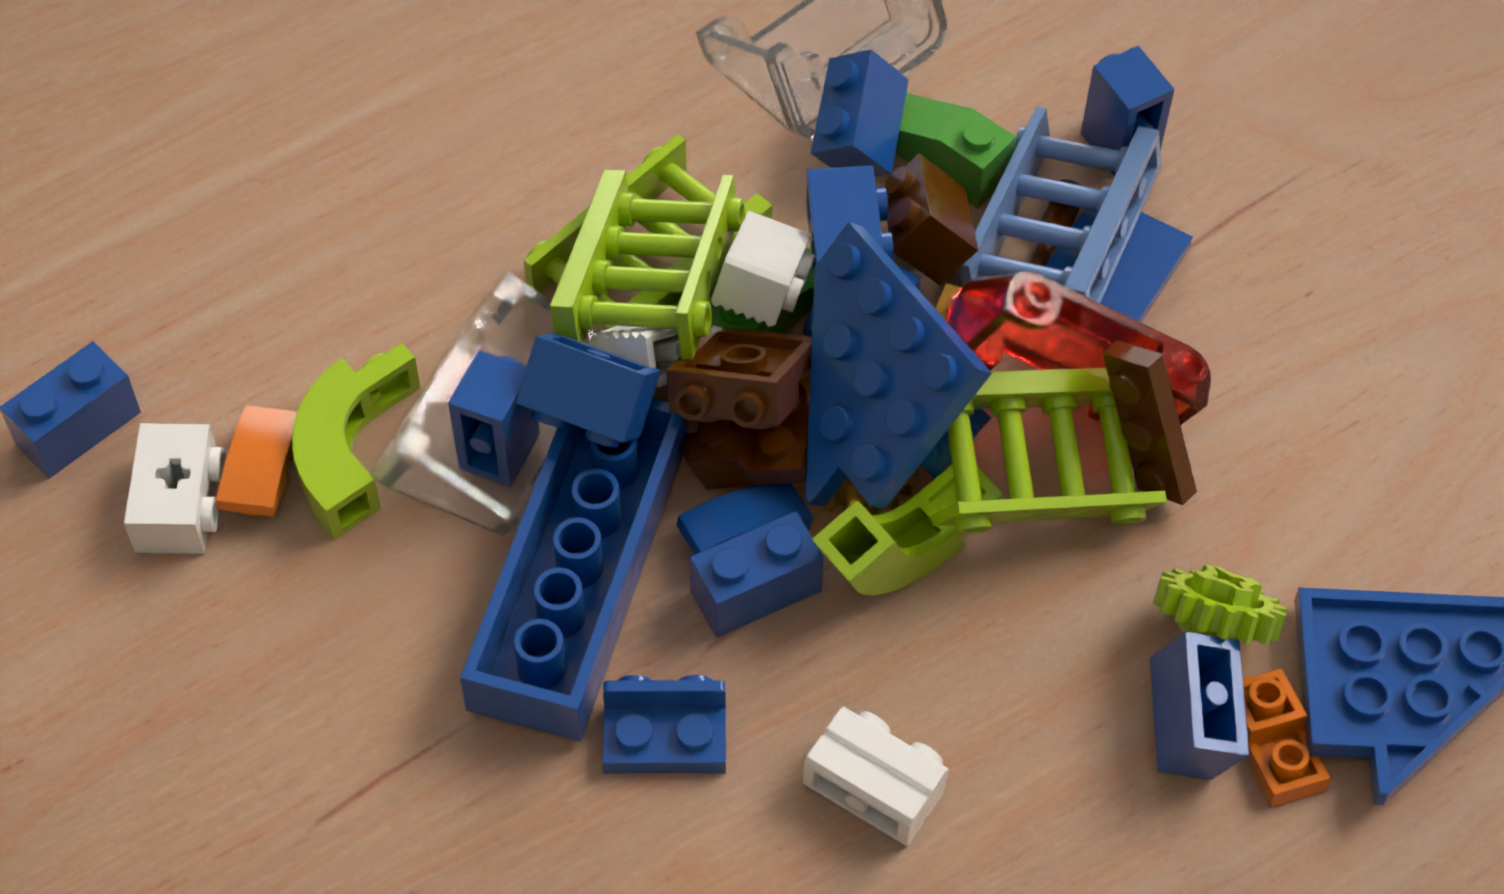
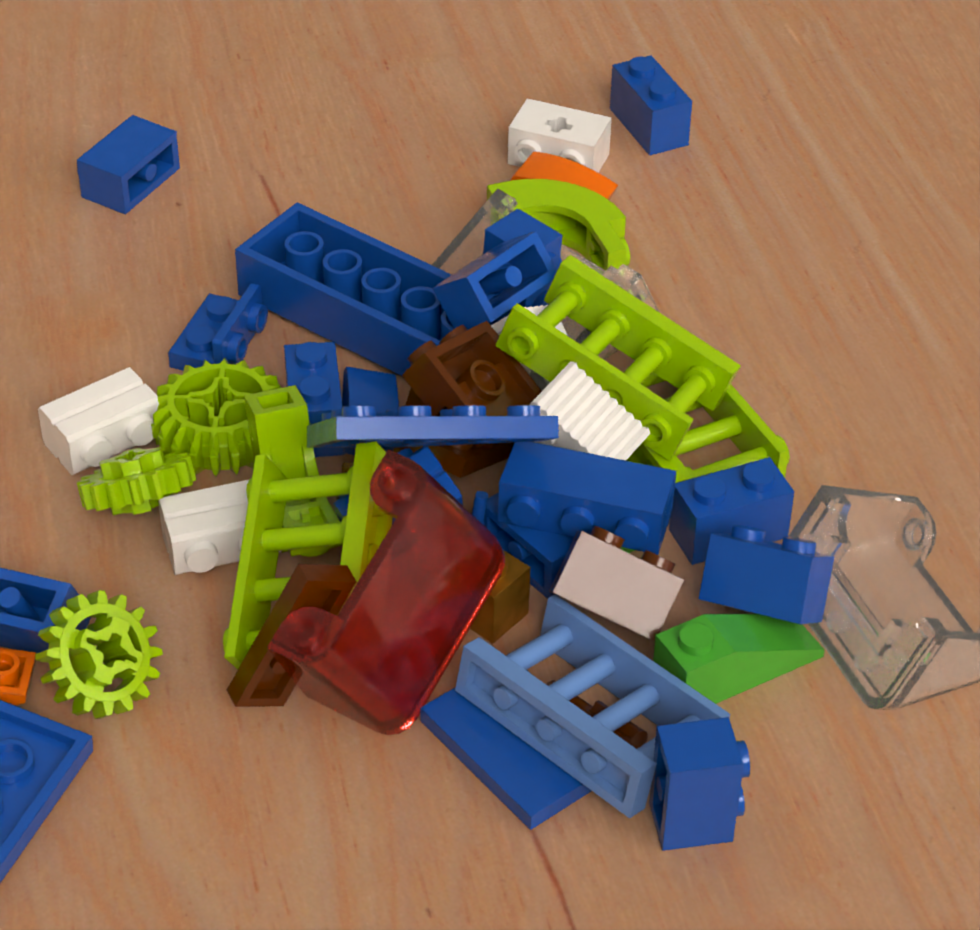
camera: 110 degrees right, 15 degrees down
(761, 166) = (740, 495): none -> blue brick
(836, 637) = (207, 414): none -> lime gear
(979, 594) = (204, 526): none -> white brick
(987, 669) = (136, 480): none -> lime gear

